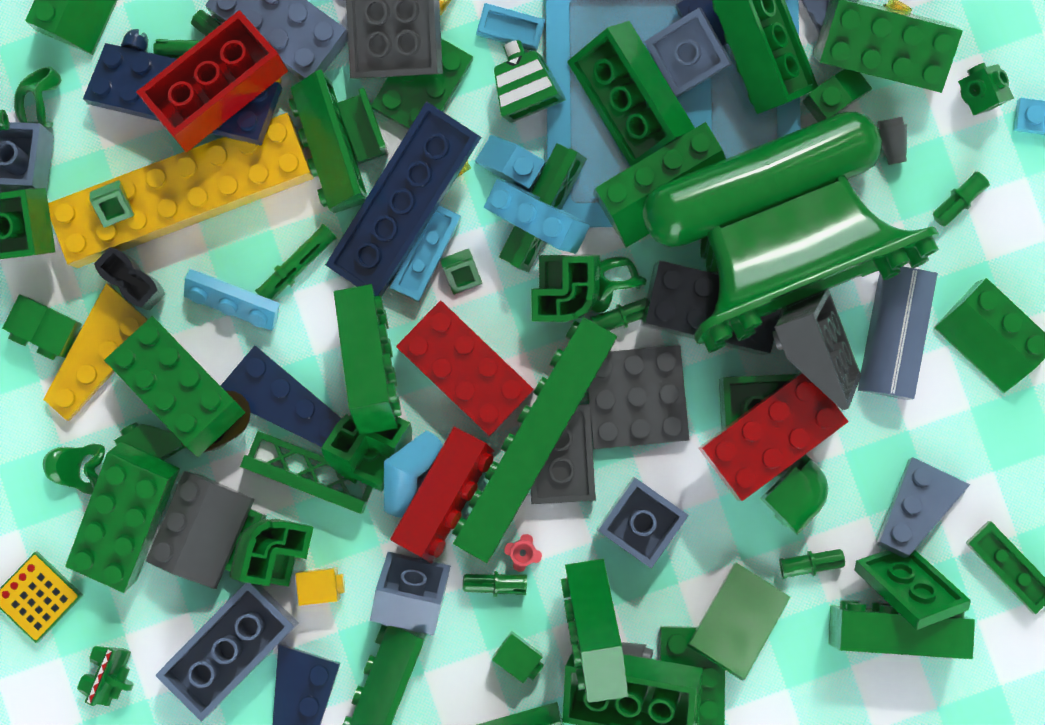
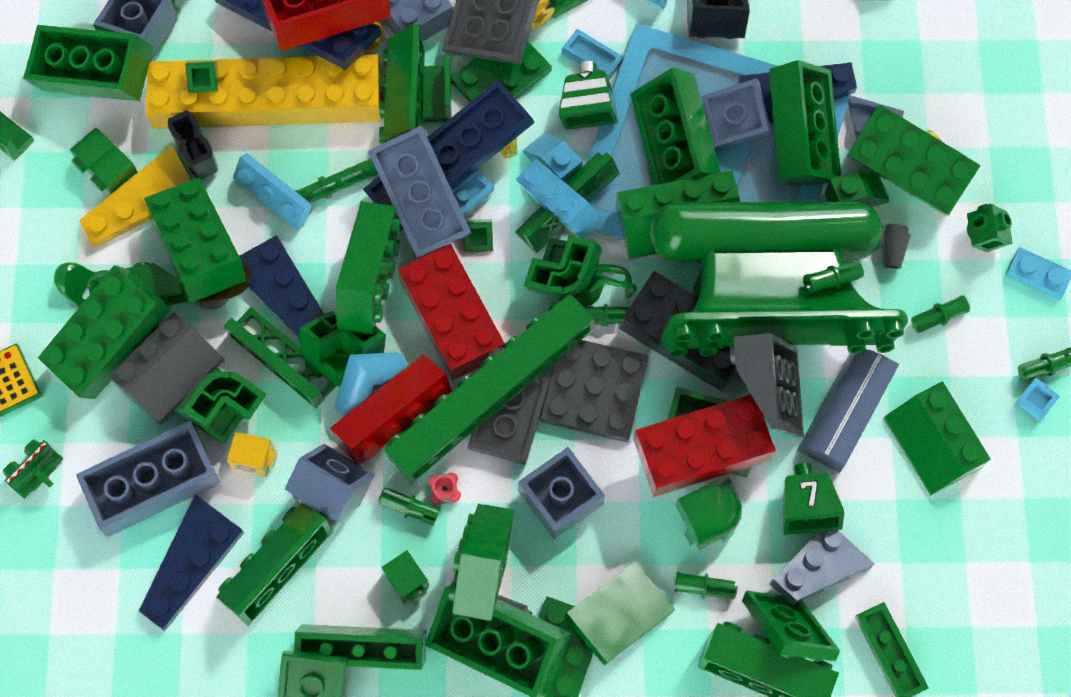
camera: 20 degrees right, 15 degrees down
(389, 257) = (419, 192): none -> sand blue plate
(849, 213) = (832, 277): none -> green axle
(889, 446) = (810, 502): none -> green torso

